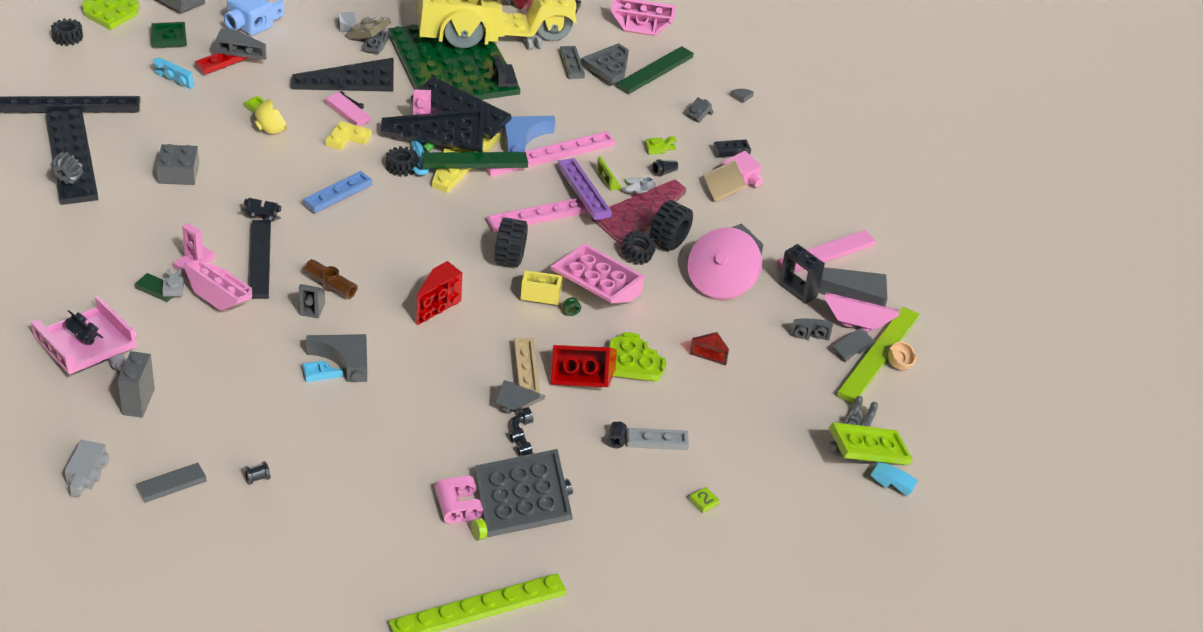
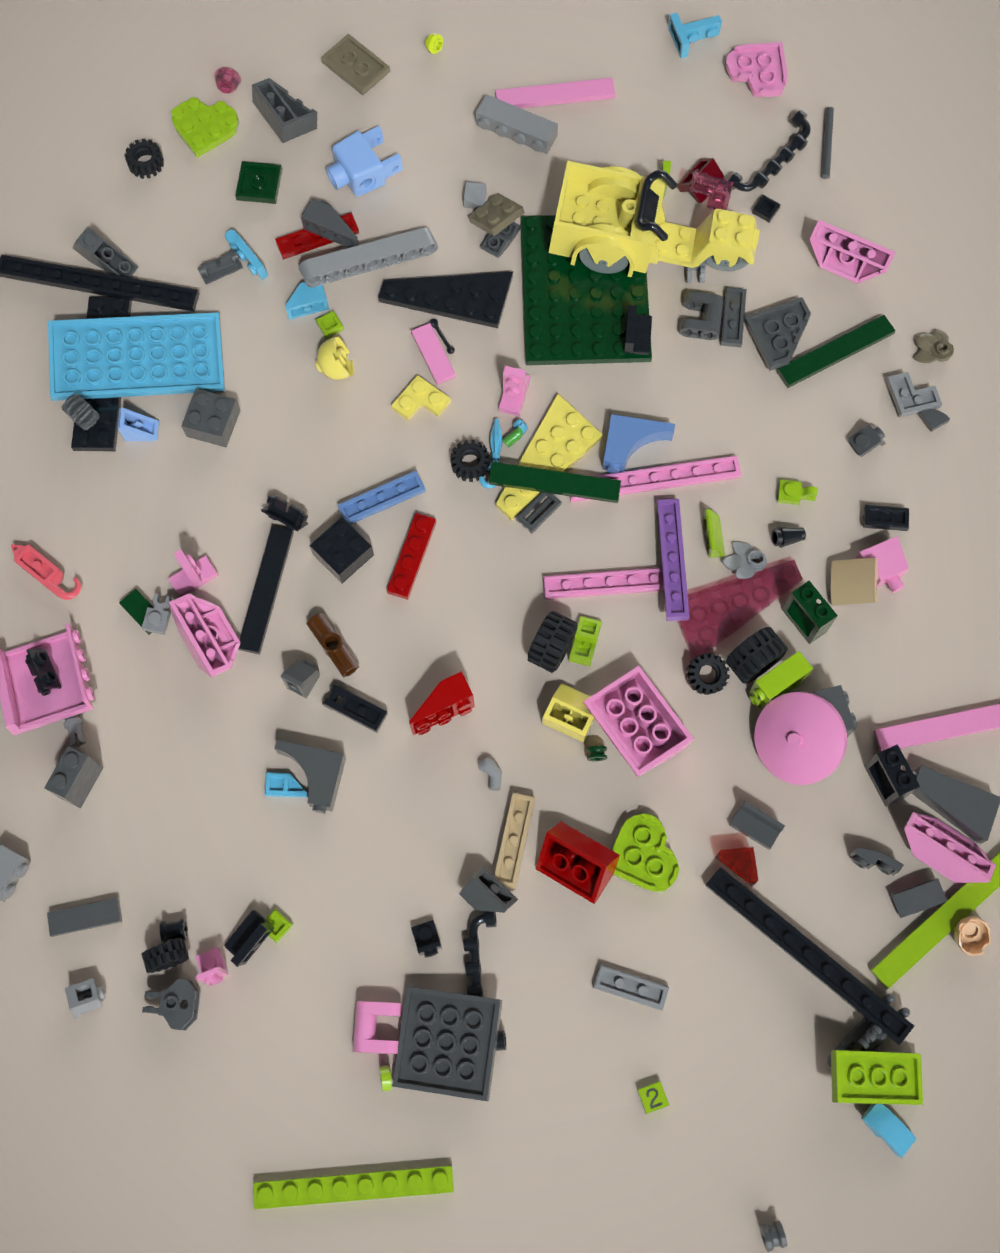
camera: 25 degrees right, 30 degrees up
(46, 84) = (103, 254): none -> dark grey slope
(59, 274) = (43, 571): none -> coral plate
(99, 135) = (135, 356): none -> medium azure plate
(115, 179) = (137, 426): none -> light blue slope
(148, 84) = (220, 267): none -> dark grey hinge
(190, 529) = (84, 997): none -> light grey brick
(234, 91) = (306, 301): none -> medium azure slope
(257, 484) = (165, 956): none -> black tyre
(276, 58) = (368, 257): none -> light grey beam
(276, 515) = (174, 1002): none -> dark grey hinge
(302, 488) = (211, 967): none -> bright pink bracket
(317, 223) = (342, 550): none -> black brick
(326, 464) = (248, 938): none -> black panel
(346, 457) = (281, 925): none -> lime tile
(363, 313) = (355, 708): none -> black plate
(375, 222) = (411, 556): none -> red plate
(449, 98) = (565, 387): black plate -> none
(449, 129) = (537, 426): black wing -> none
(470, 184) = (527, 523): none -> dark grey tile
(479, 440) = (426, 939): none -> black bracket
(493, 332) = (491, 768): none -> light grey arm
(535, 248) = (585, 641): none -> lime slope
(553, 61) = (712, 309): none -> dark grey connector
(617, 433) = (584, 974): black bush -> none
(691, 233) = (780, 680): none -> lime window
(701, 212) = (806, 614): none -> dark green window
(714, 320) = (756, 825): none -> dark grey panel
(720, 86) = (911, 401): none -> light grey plate
(725, 59) = (931, 347): none -> dark tan plate
(786, 388) = (810, 956): none -> black plate
(836, 559) = (773, 1236): none -> dark grey wheel

